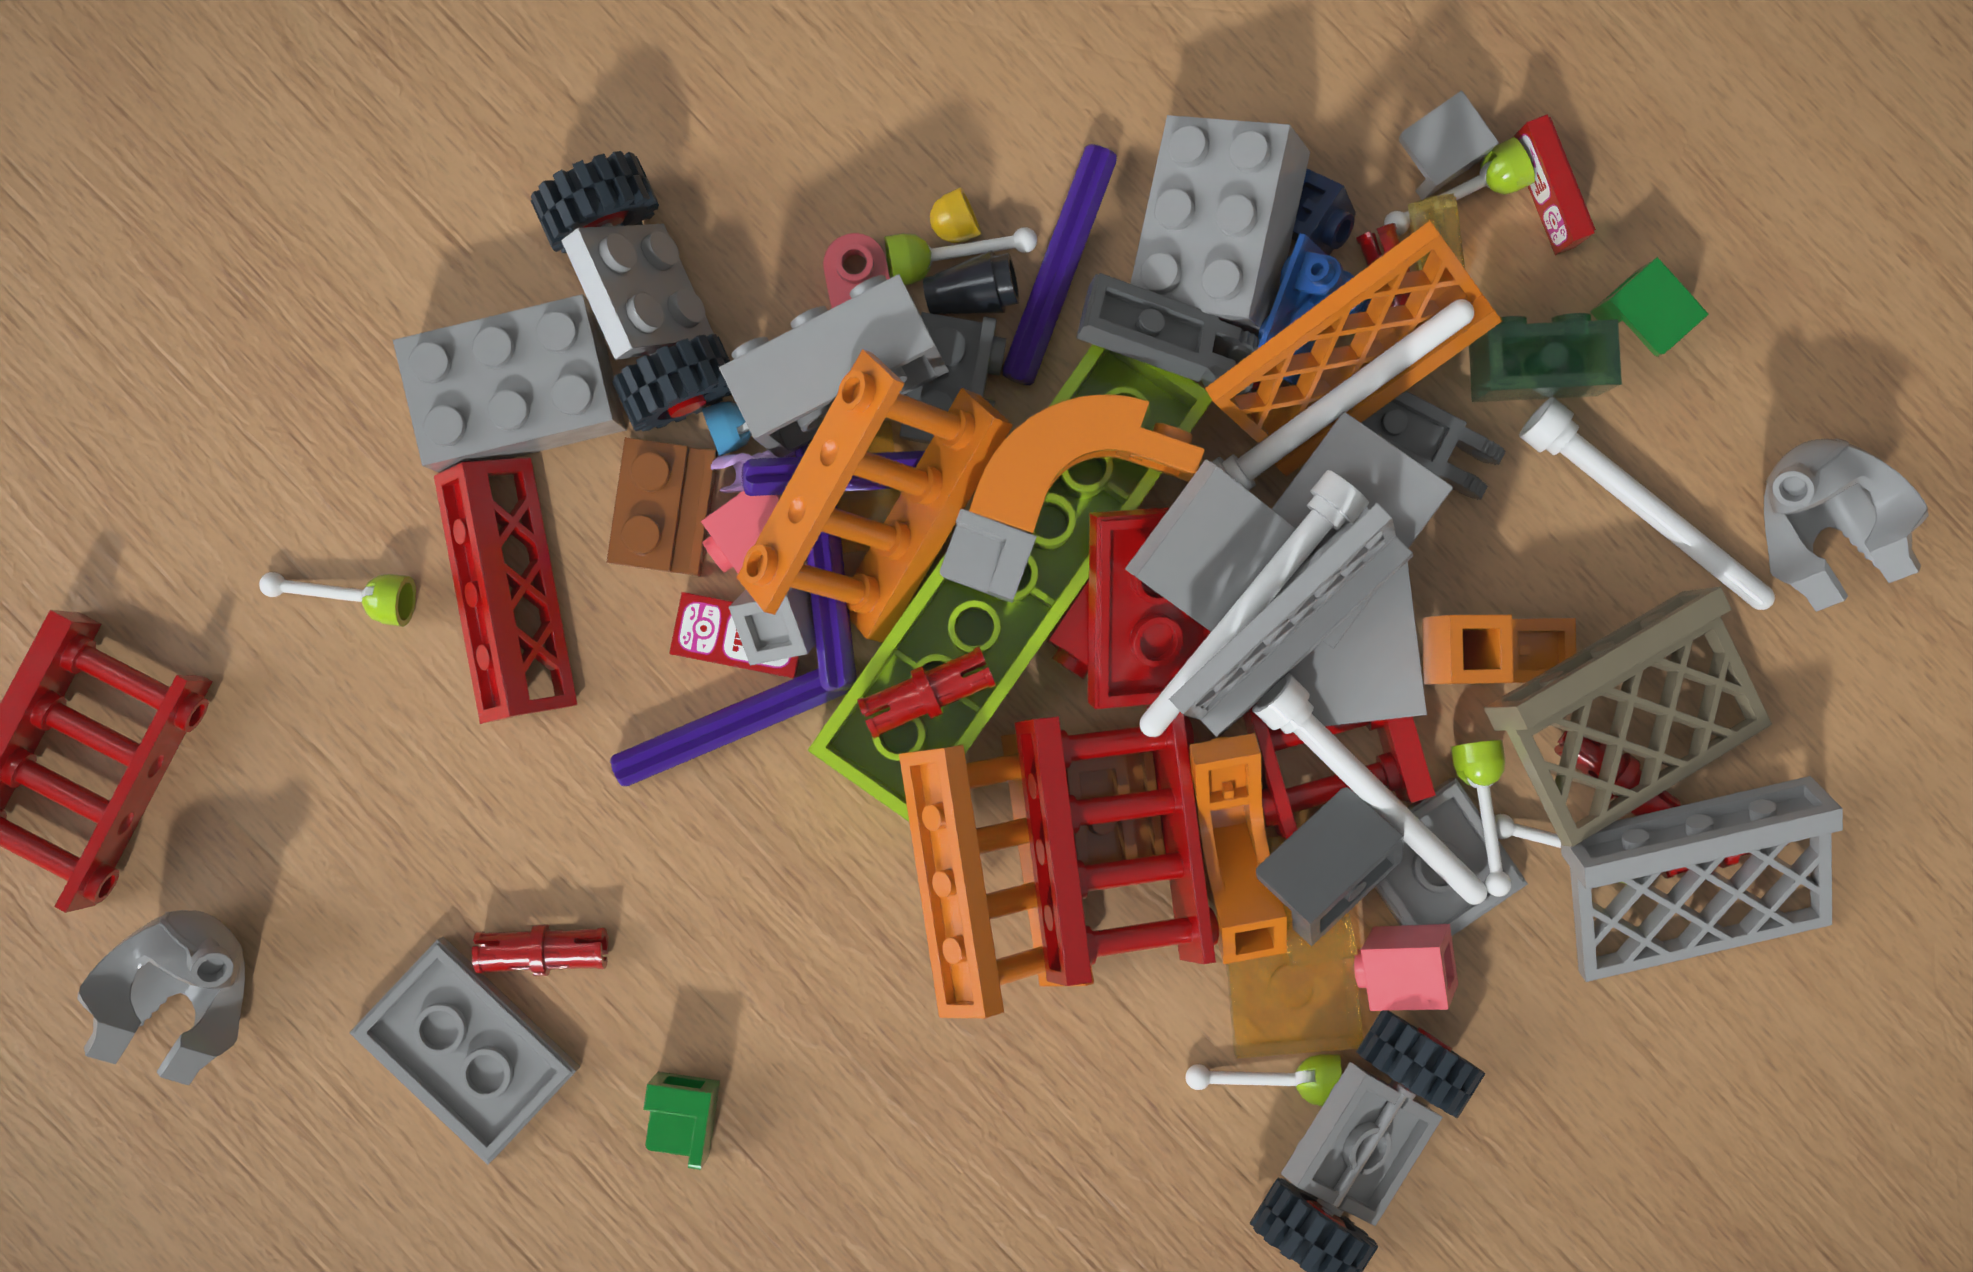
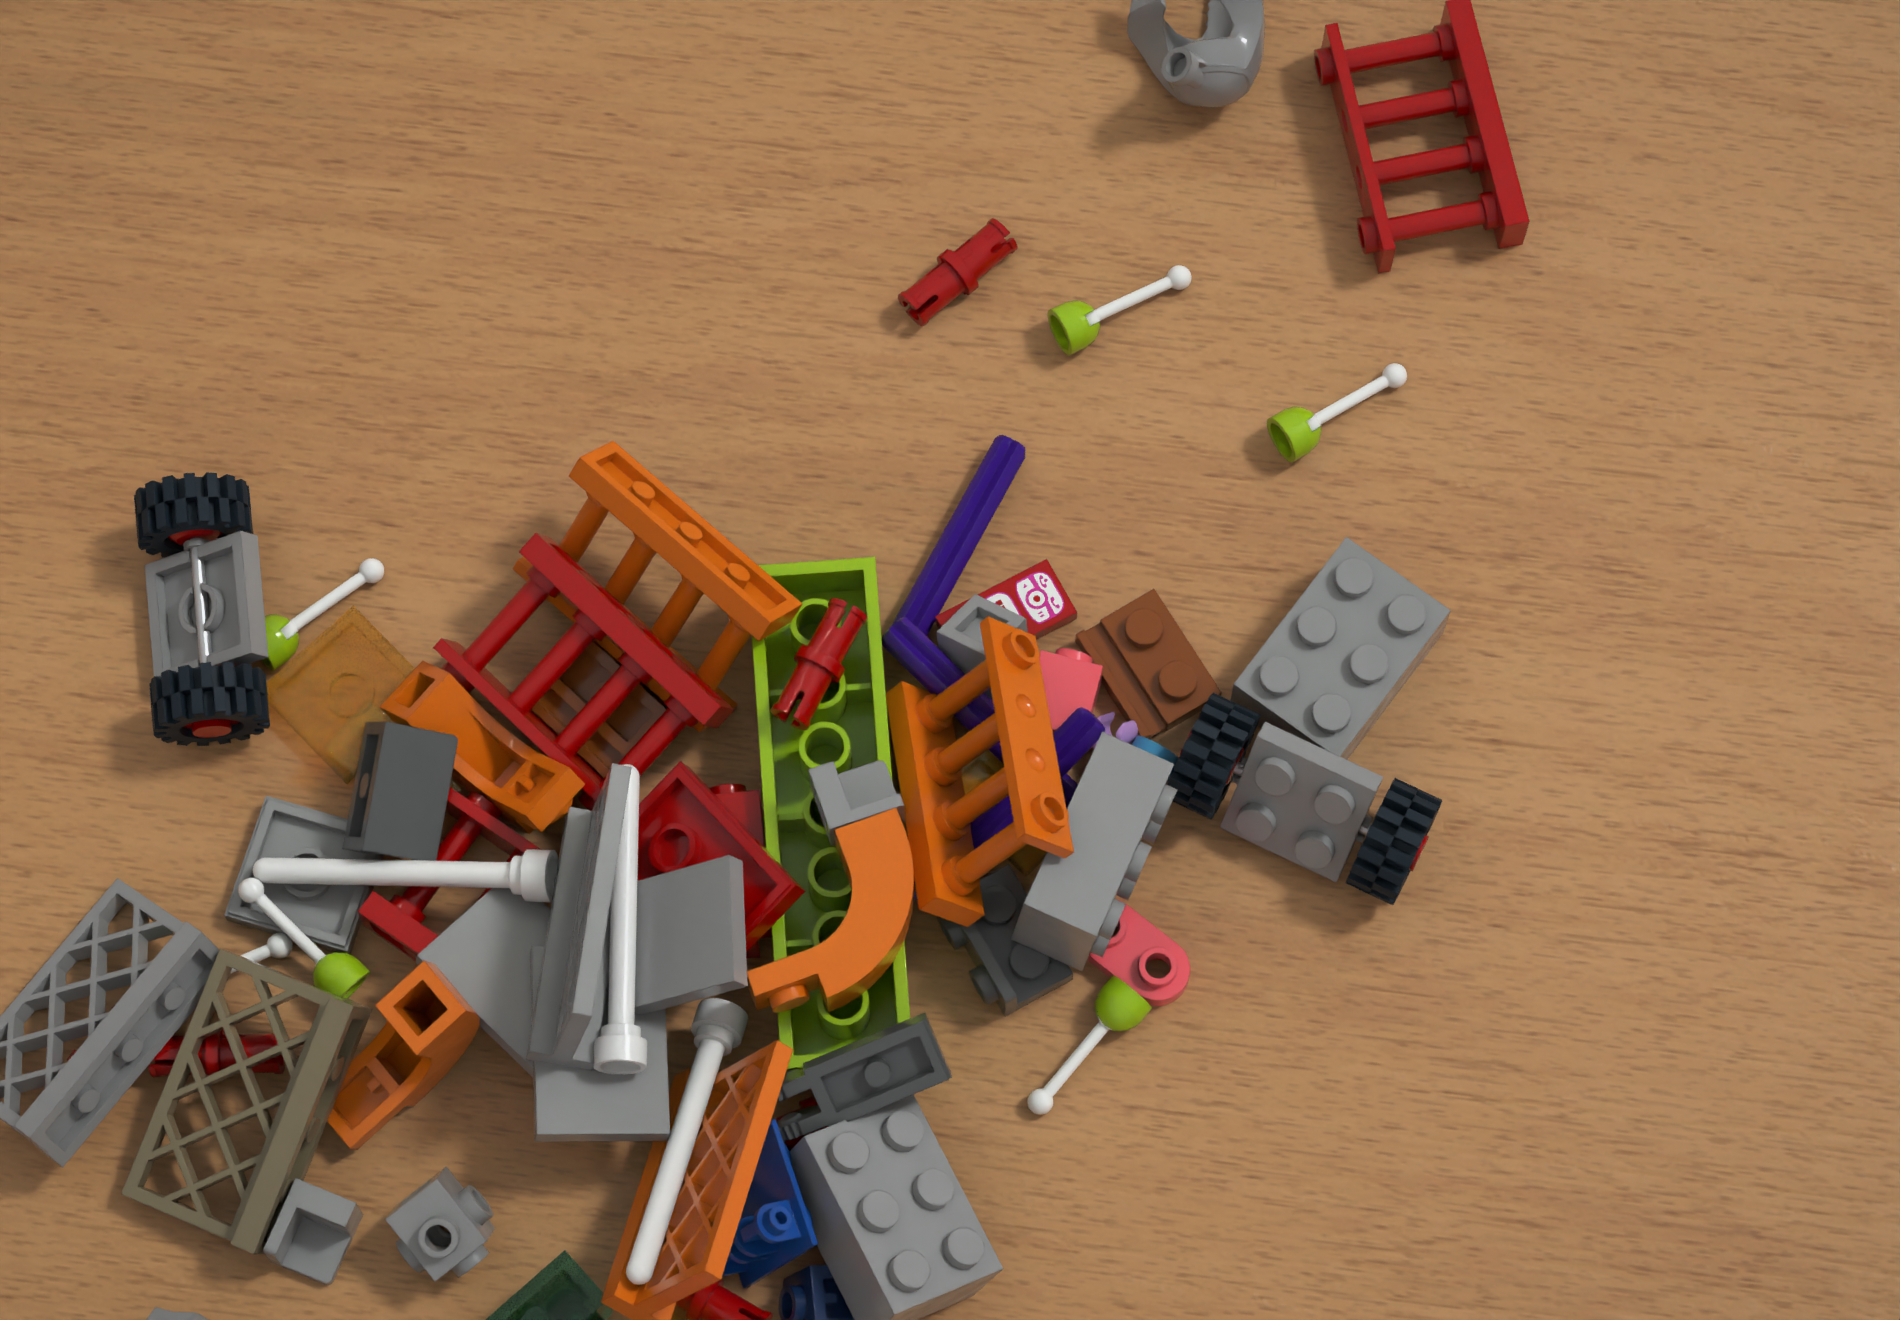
camera: 145 degrees right, 15 degrees down
(464, 1050) = (953, 160): light grey tile -> none
(482, 828) = (1078, 324): none -> hinge
(484, 593) = (1225, 490): red fence -> none
(681, 1116) = (749, 238): green panel -> none
(954, 217) = (1108, 1071): yellow hinge -> none
(973, 286) = (1047, 1027): black cone -> none
(1059, 264) = (995, 1103): dark purple axle -> none
(1408, 967) = (273, 769): coral brick -> none
(1430, 437) = (587, 1196): dark grey hinge -> none
(1556, 432) = (480, 1289): white piece -> none
(1556, 498) = (445, 1204): none -> light grey brick
(1647, 579) = (313, 1232): none -> light grey panel

